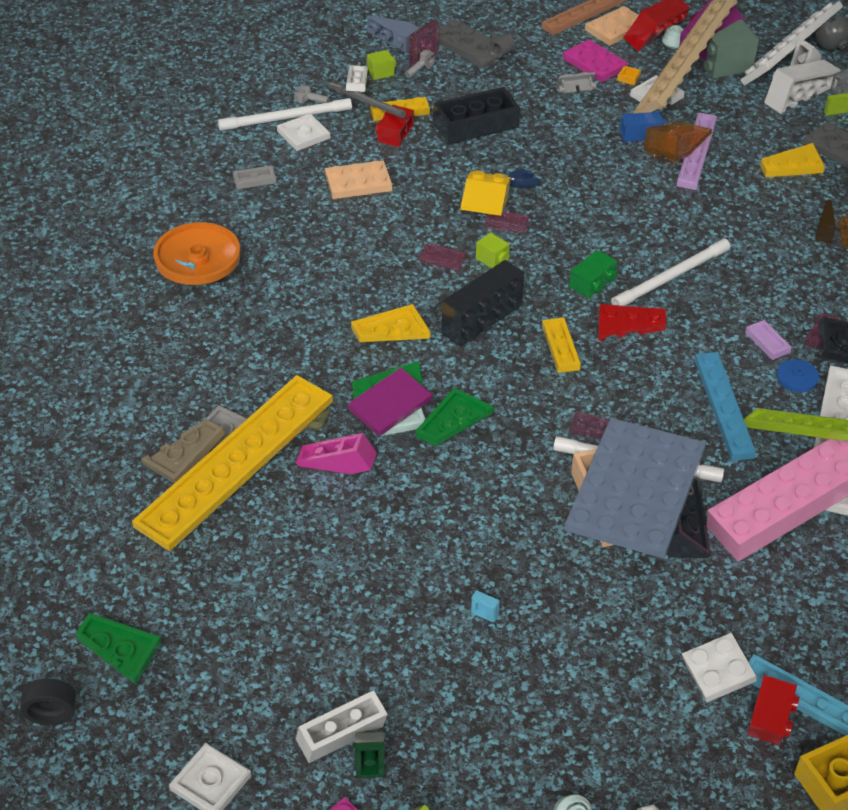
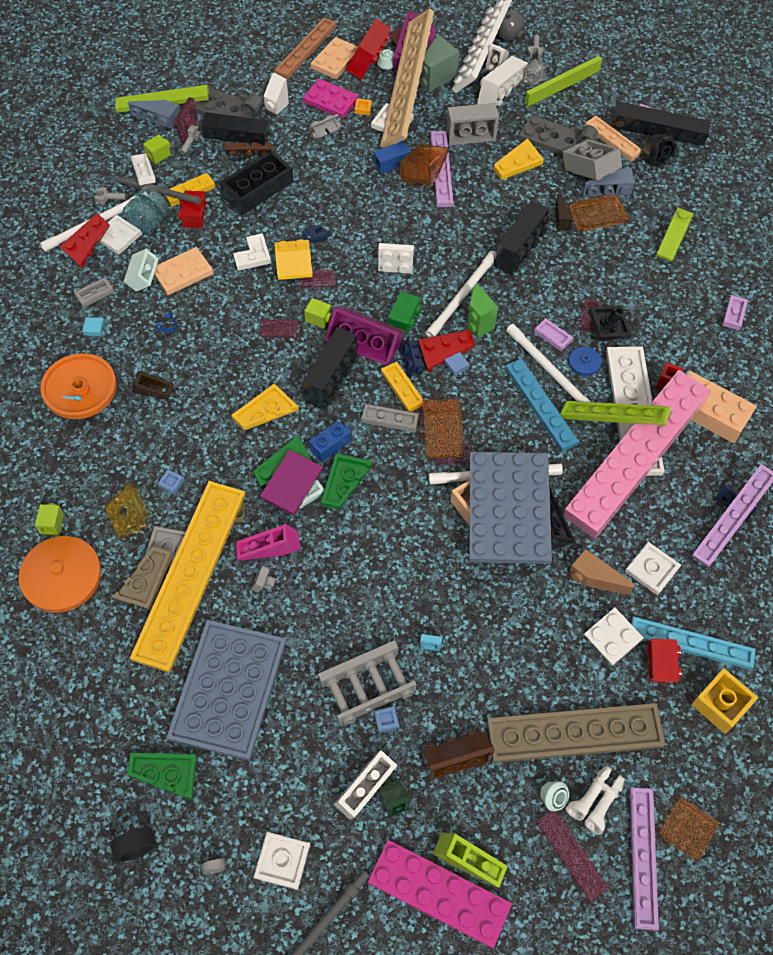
camera: 20 degrees left, 15 degrees up
(95, 424) = (60, 574): none -> orange dish
(108, 368) = (49, 519): none -> lime brick
(128, 757) = (213, 866): none -> light grey tile
(203, 381) = (135, 513): none -> clear yellow piece
(225, 586) = (227, 690): none -> sand blue plate
(239, 207) = (93, 326): none -> medium azure tile
(256, 370) = (171, 482): none -> medium blue tile
(263, 128) = (83, 241): none -> red wing
(268, 268) = (154, 381): none -> dark brown slope
(311, 227) = (169, 330): none -> blue piece
(313, 165) = (141, 270): none -> light aqua brick
(314, 489) = (262, 580): none -> light grey tile
(343, 112) = (146, 209): none -> clear light blue wheel
(385, 604) = (369, 662): none -> light grey fence
(398, 673) = (386, 719): none -> medium blue tile
(445, 23) = (176, 96): none -> lime tile
(447, 183) = (255, 256): none -> white plate
(453, 373) = (330, 441): none -> blue brick
(466, 733) = (457, 755): none -> reddish brown slope
(471, 81) = (254, 148): none -> reddish brown wing
(475, 64) = (235, 128): none -> black brick
(533, 41) = (276, 94): none -> white slope
(534, 372) = (390, 418): none -> light grey tile
(544, 287) = (375, 338): none -> magenta slope
(585, 319) = (411, 357): none -> dark blue hinge
(591, 394) = (442, 428): none -> clear orange slope
(604, 217) = (395, 258): none -> white plate
(629, 757) = (575, 733): none -> dark tan plate
(636, 339) = (456, 363): none -> medium blue tile
(684, 292) = (481, 312): none -> bright green slope
(724, 595) = (597, 574): none -> medium nougat slope
(749, 112) = (472, 124): none -> light grey brick
(759, 385) = (519, 337): none -> white piece
(764, 231) = (521, 238): none -> black brick
(800, 611) = (652, 568): none -> white tile

